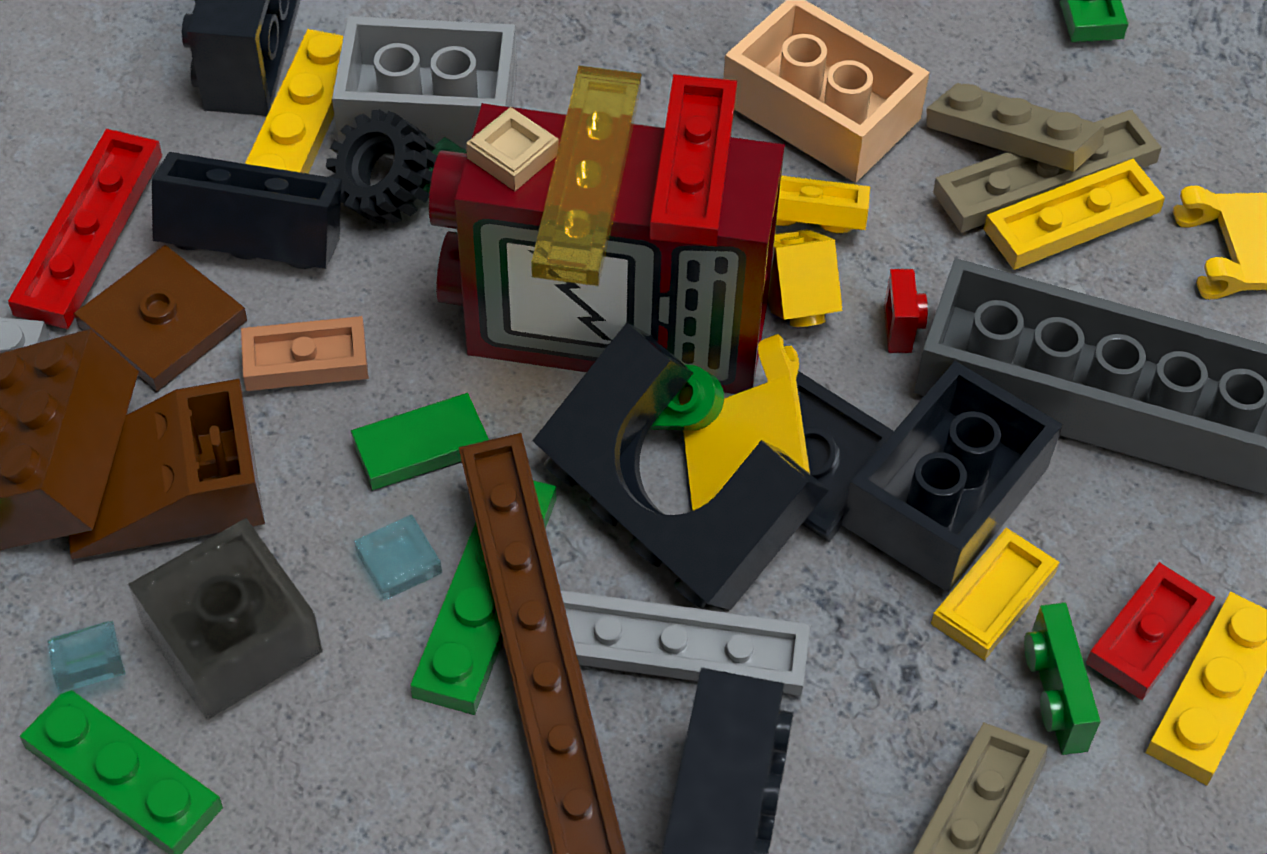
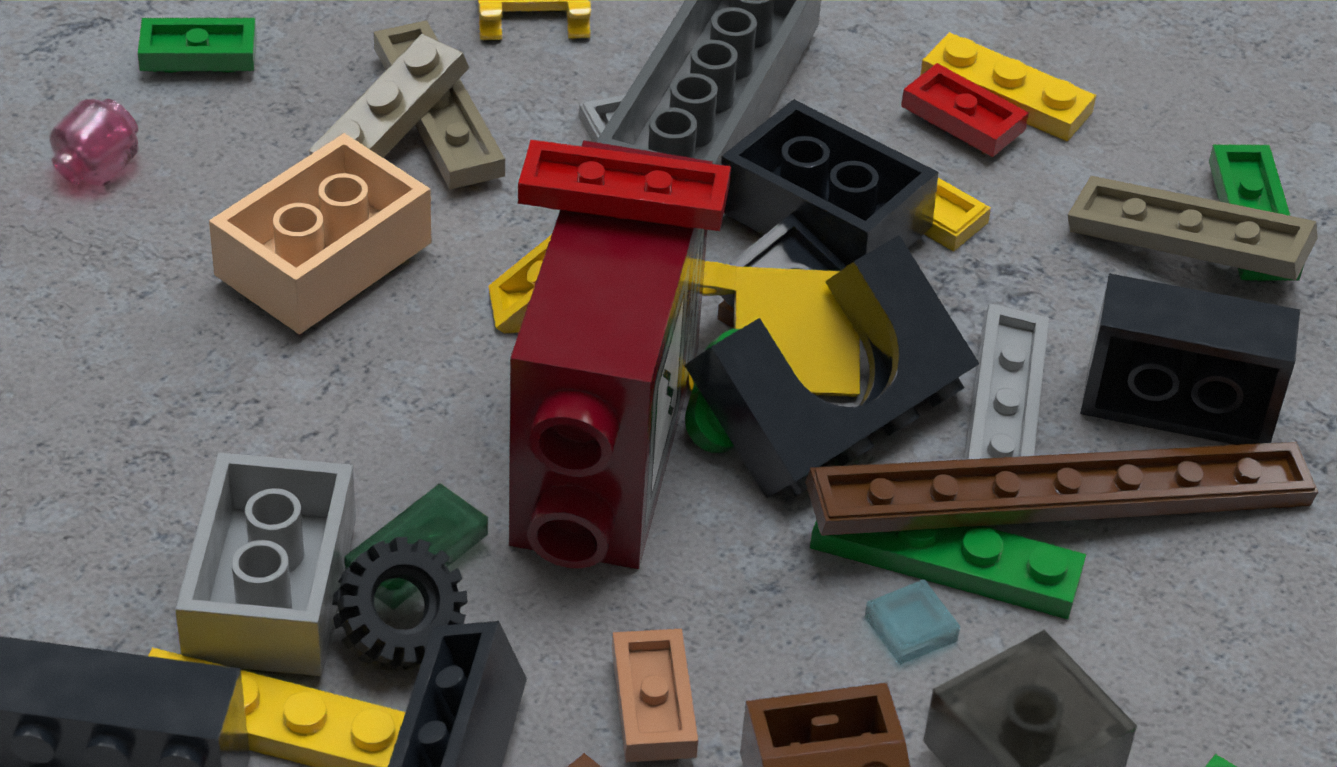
camera: 90 degrees left, 10 degrees down
(417, 440) = (767, 601): green tile -> none
(512, 148) = (591, 326): tan tile -> none
(587, 176) = (630, 269): clear yellow tile -> none
(826, 203) = (467, 268): yellow plate -> none
(1067, 695) = (1020, 161): green plate -> none
(1073, 213) = (501, 93): yellow plate -> none

